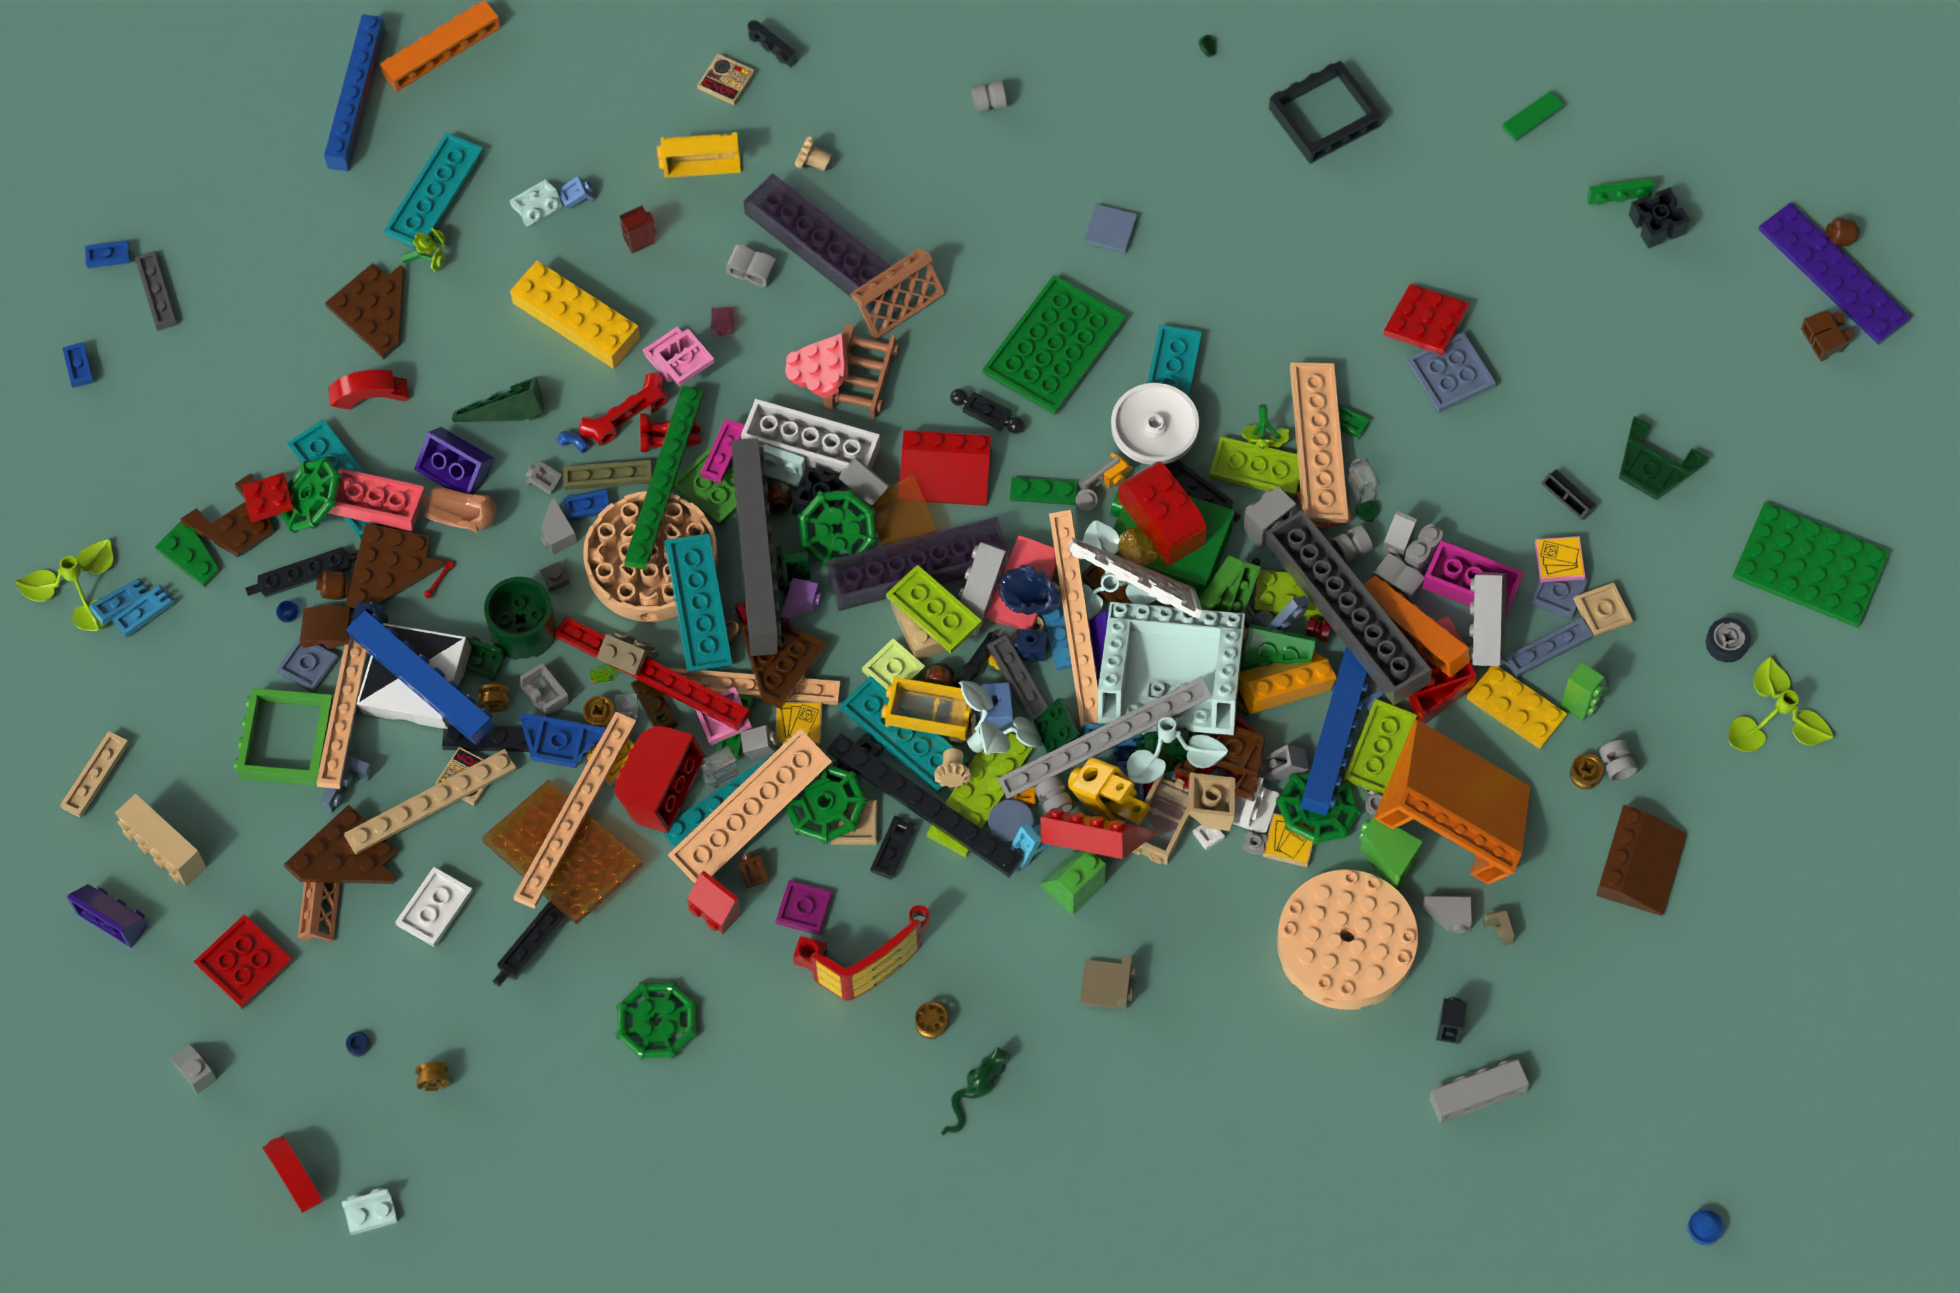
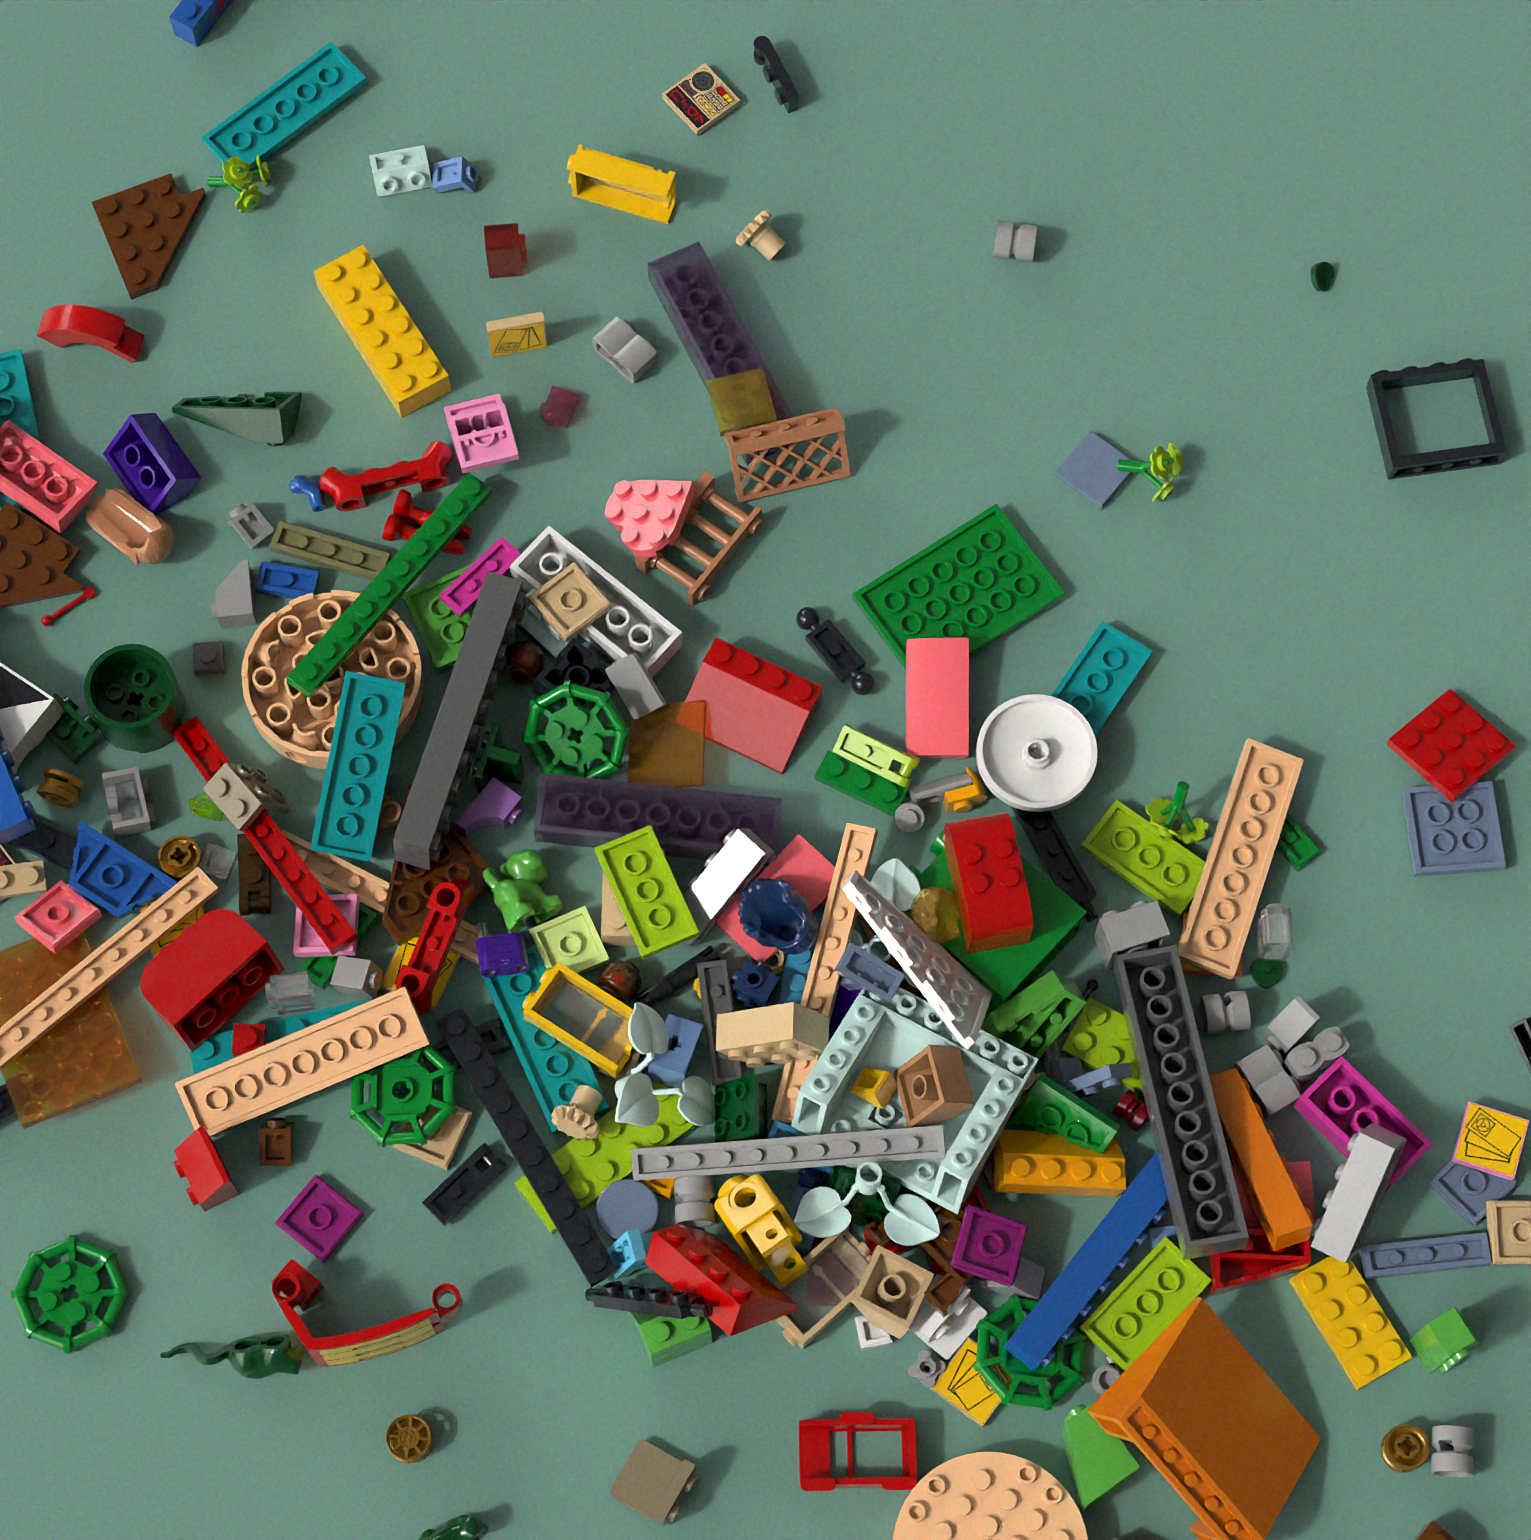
camera: 20 degrees right, 5 degrees up
(532, 781) = (58, 916): none -> coral tile
(672, 281) = (516, 334): none -> tile
(702, 808) = (248, 1037): none -> red plate
(794, 442) = (570, 602): none -> tan tile
(800, 1010) = (251, 1356): none -> dark green animal
(804, 692) = (446, 912): none -> red plate
(844, 644) = (521, 891): none -> bright green animal
(851, 268) = (741, 401): none -> clear yellow plate
(851, 688) = (501, 953): none -> dark purple piece
(1045, 468) = (875, 755): none -> plate
(1059, 861) = (649, 1301): none -> black plate
(1060, 667) = (772, 1034): none -> tan brick
(1071, 415) = (937, 698): none -> coral slope
(1107, 599) = (864, 971): none -> sand blue bracket
(1143, 673) = (874, 1086): none -> yellow slope
(1156, 205) = (1161, 465): none -> lime plant
(1183, 656) = (933, 1086): none -> medium nougat slope
(1204, 924) = (815, 1452): none -> red piece
(1264, 744) = (989, 1245): none -> magenta tile

